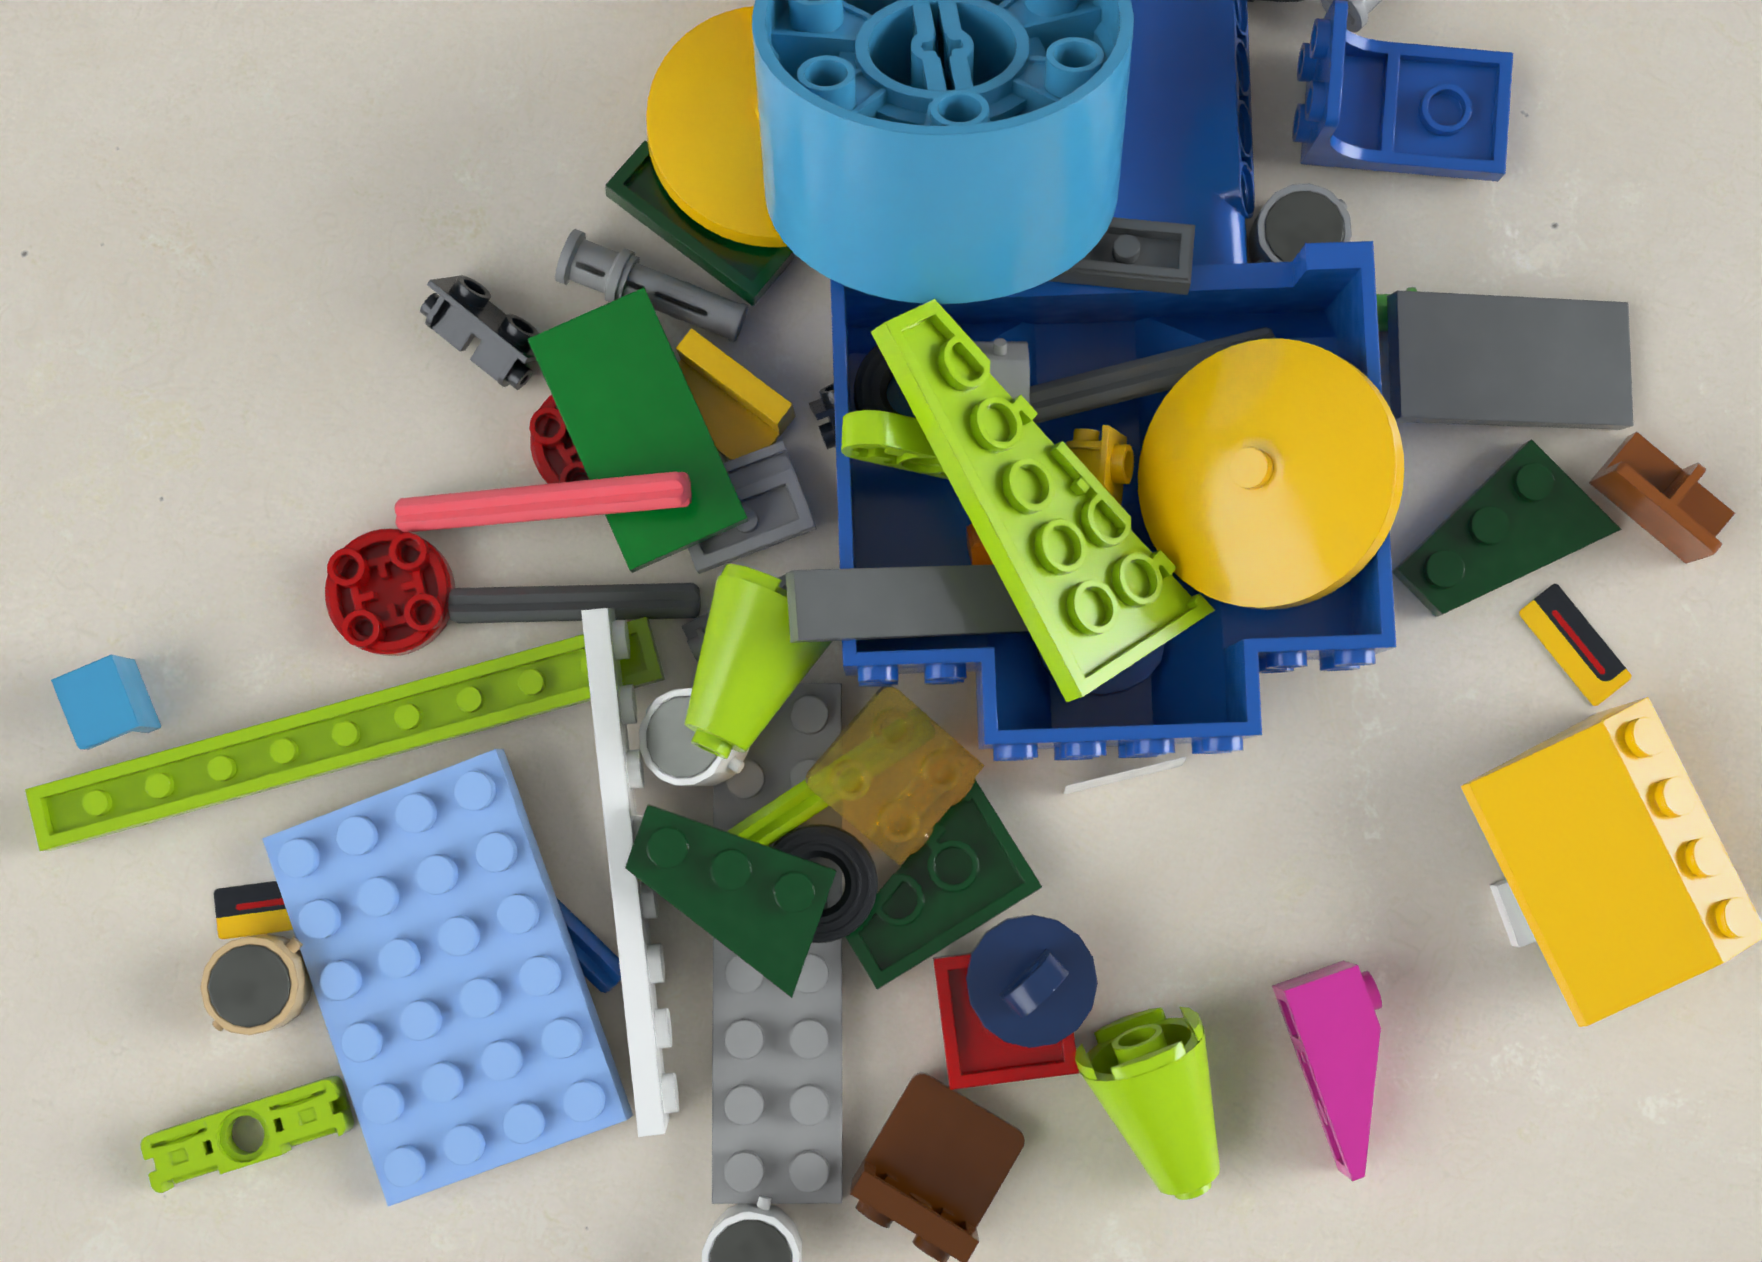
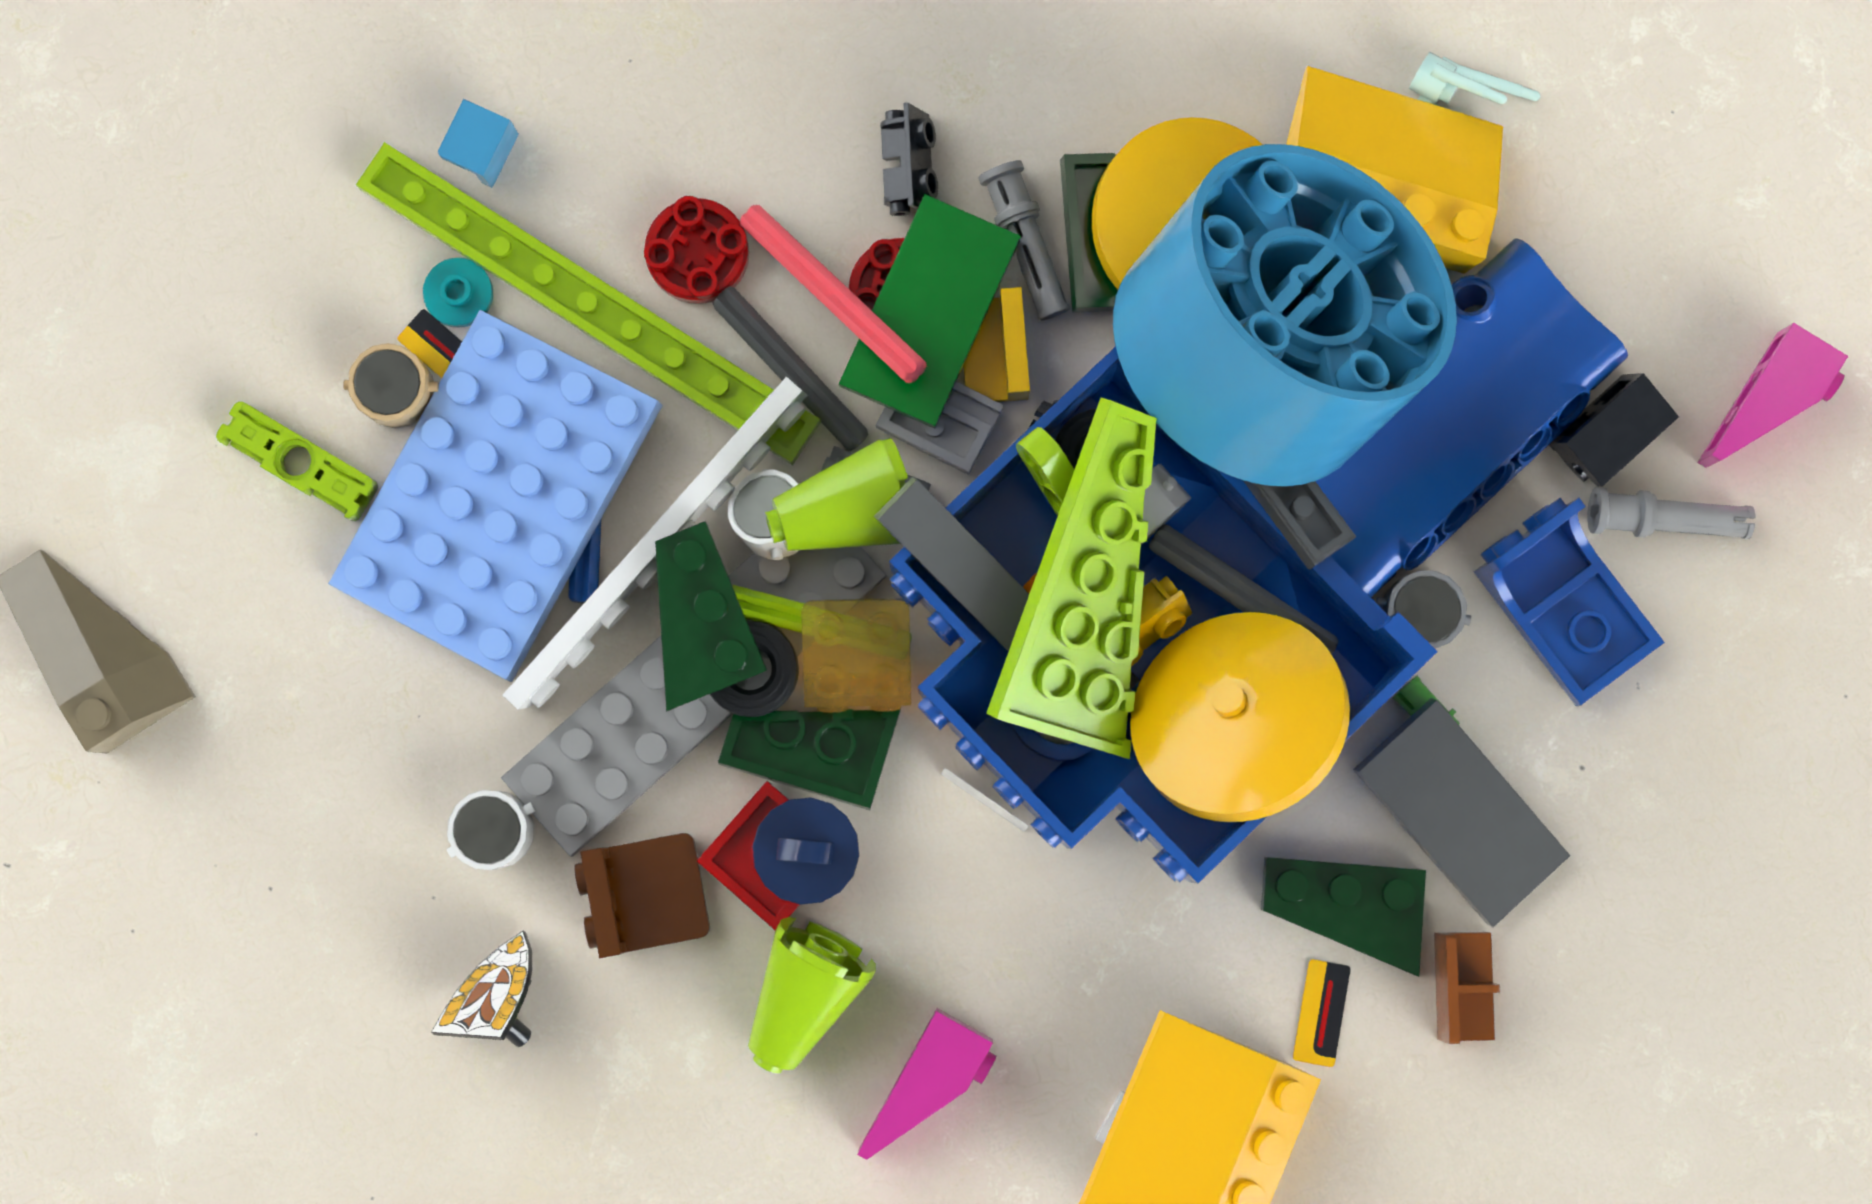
camera: 50 degrees right, 0 degrees up
(227, 844) = (457, 292): none -> teal piece

